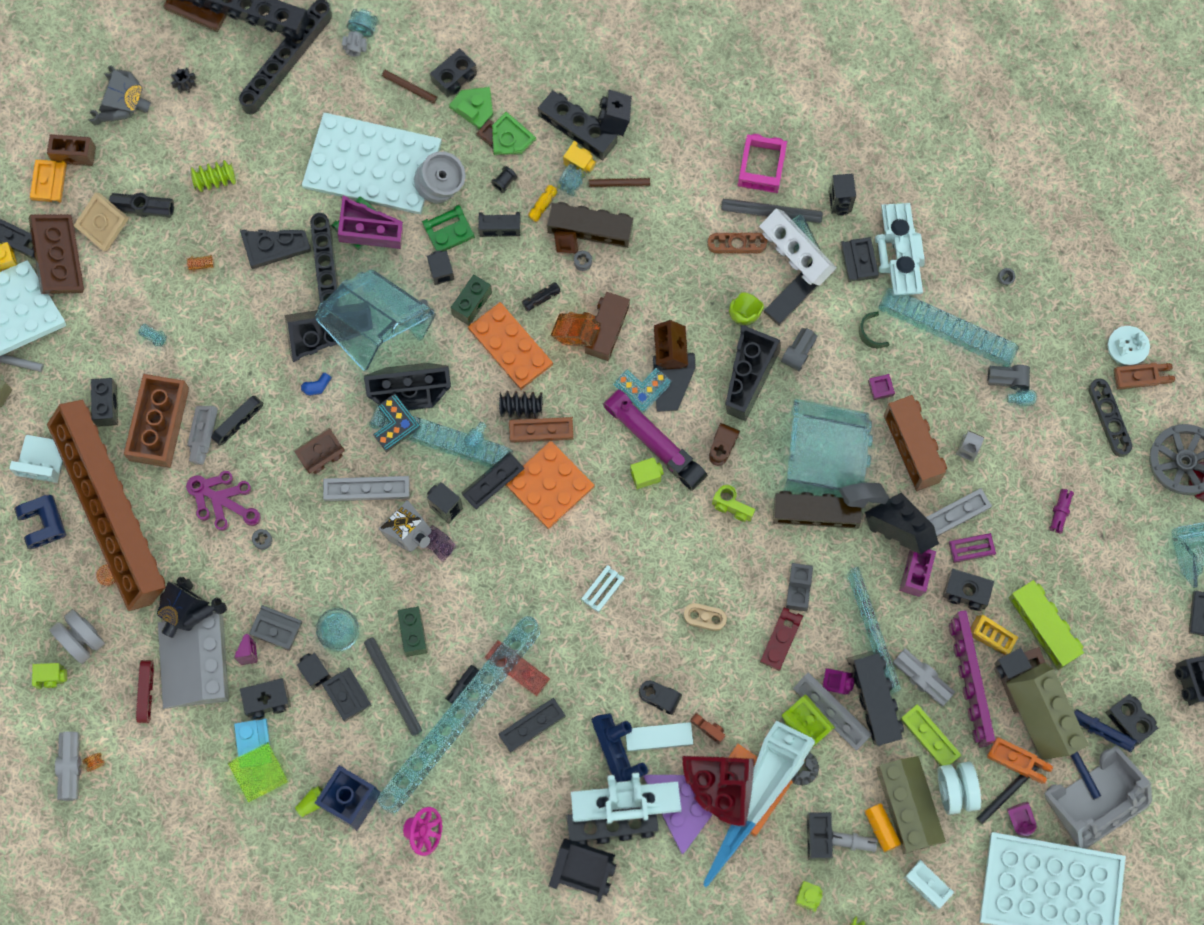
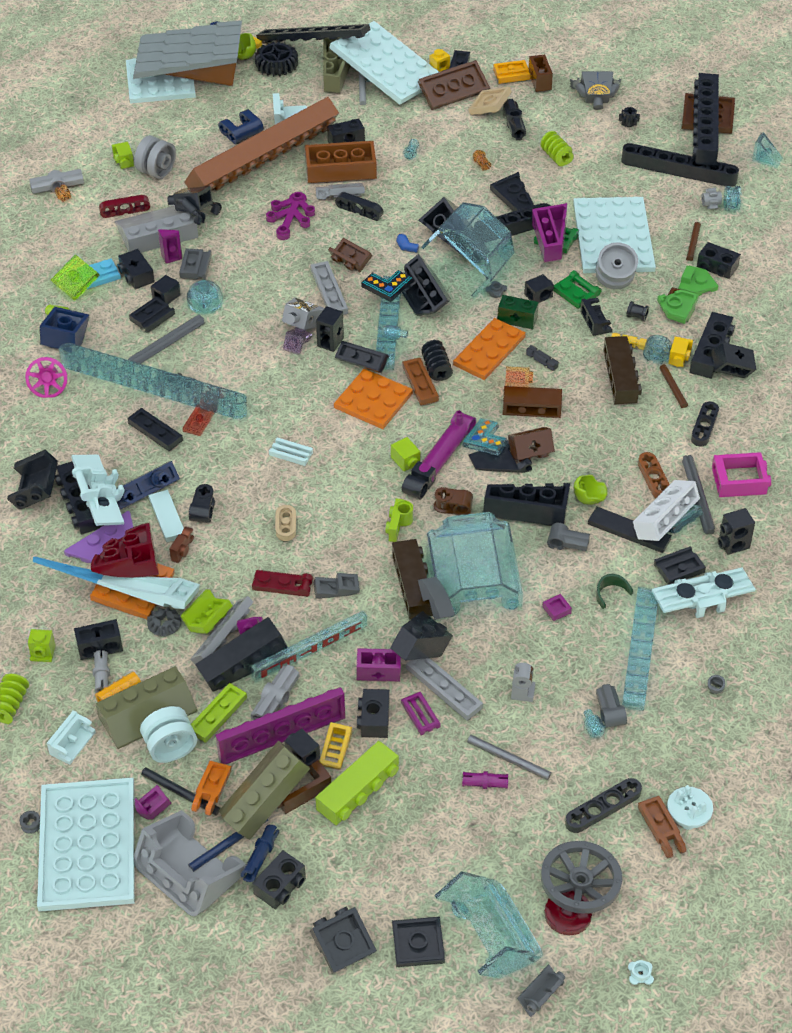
camera: 75 degrees right, 25 degrees down
(268, 541) = (266, 242): dark grey bush -> none
(412, 631) = (214, 338): dark green brick -> none
(566, 242) = (597, 358): reddish brown tile -> none
(580, 254) = (587, 372): dark grey bush -> none
(665, 167) = (703, 417): none -> black beam
(914, 442) = (506, 635): dark orange brick -> none
(1039, 482) = (505, 755): none -> flat silver bar

